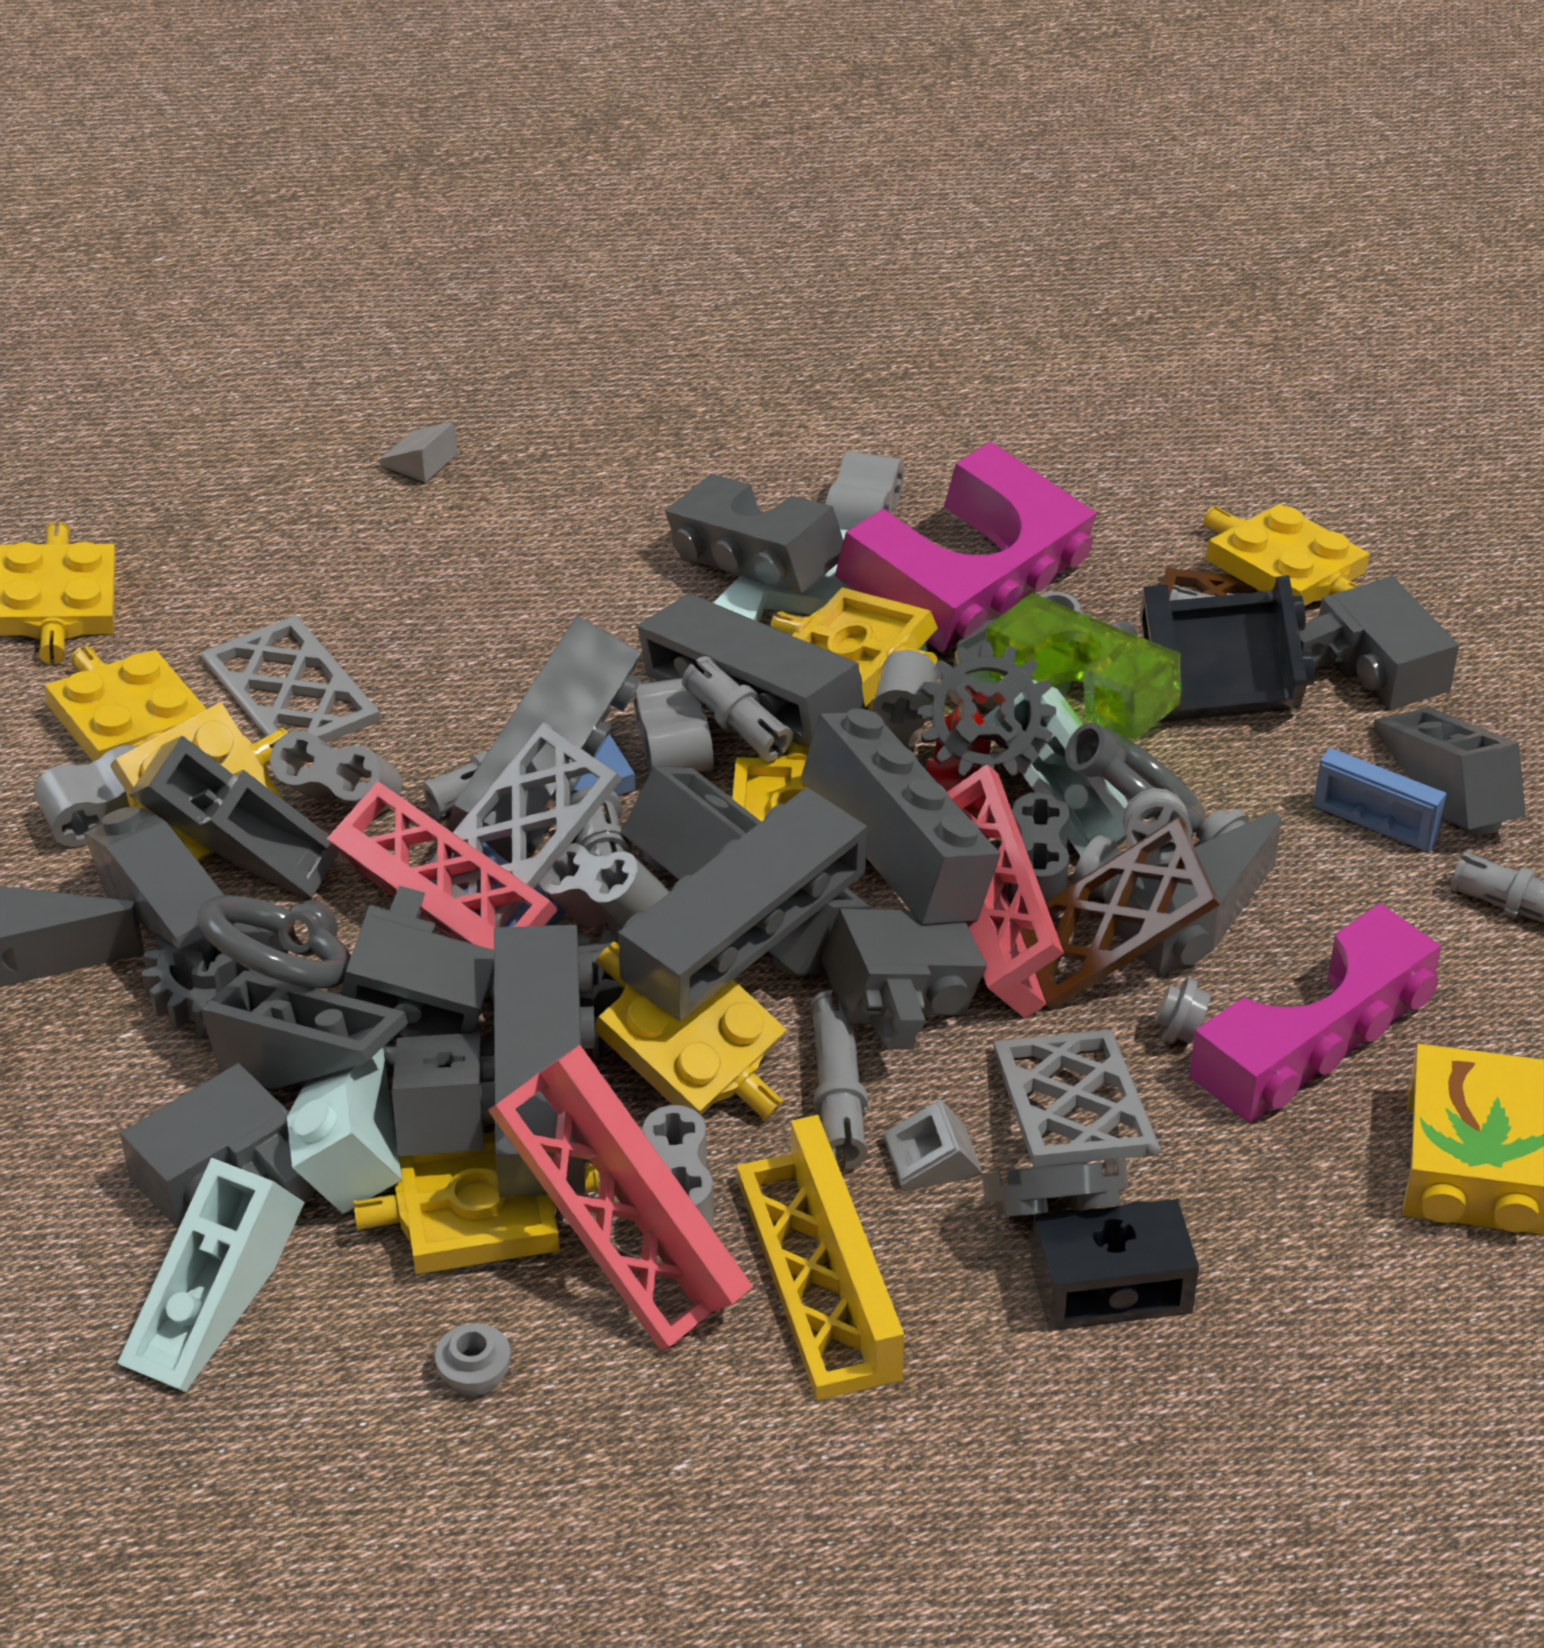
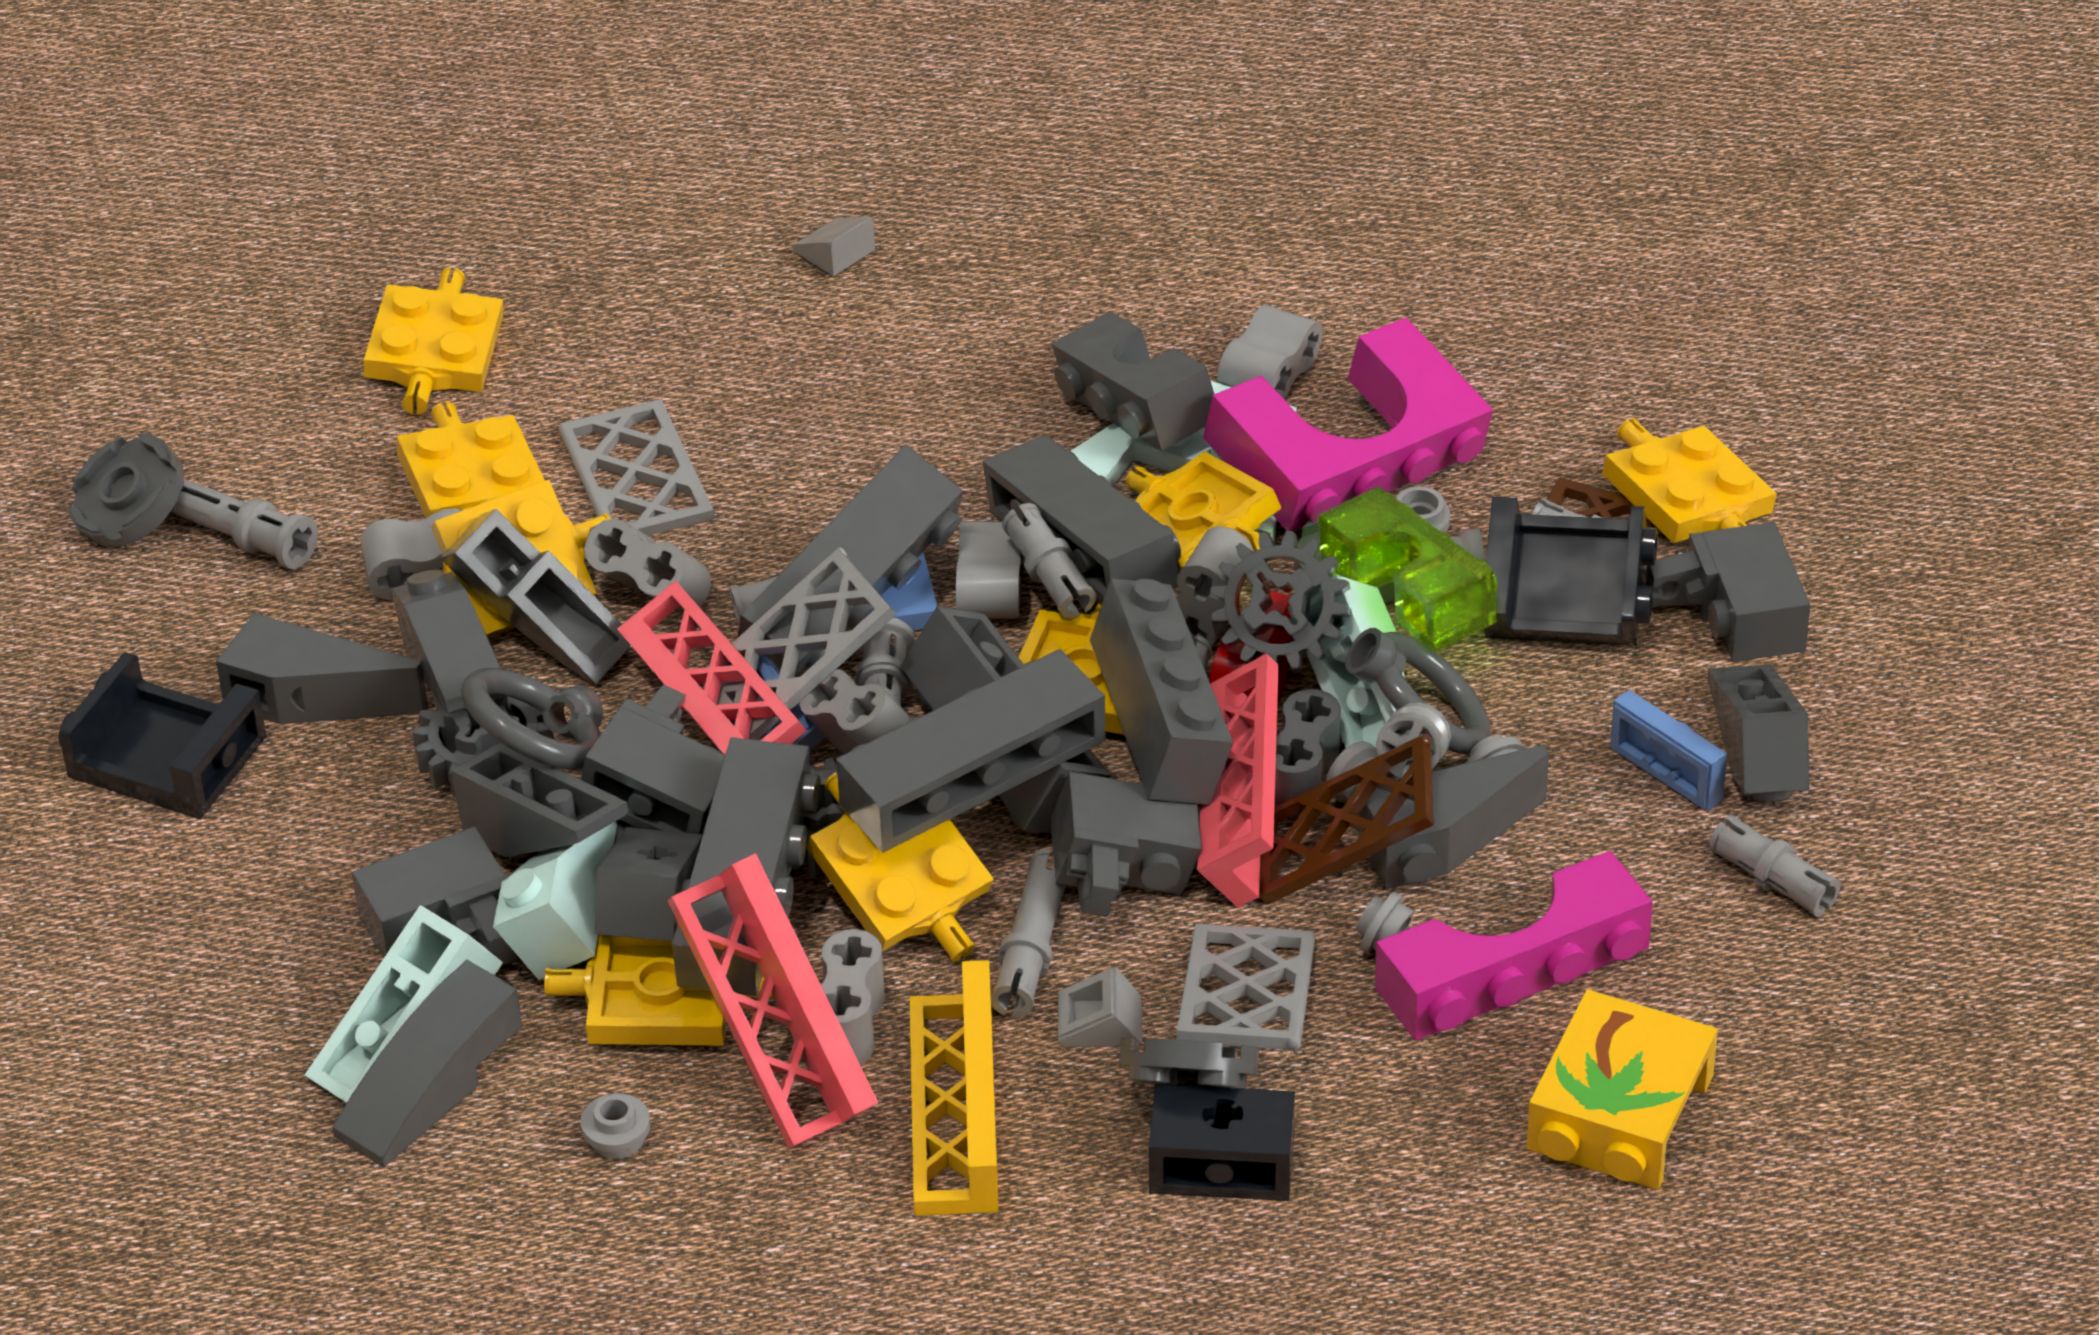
camera: 15 degrees right, 0 degrees up
(254, 1328) = (429, 1063): none -> dark grey slope

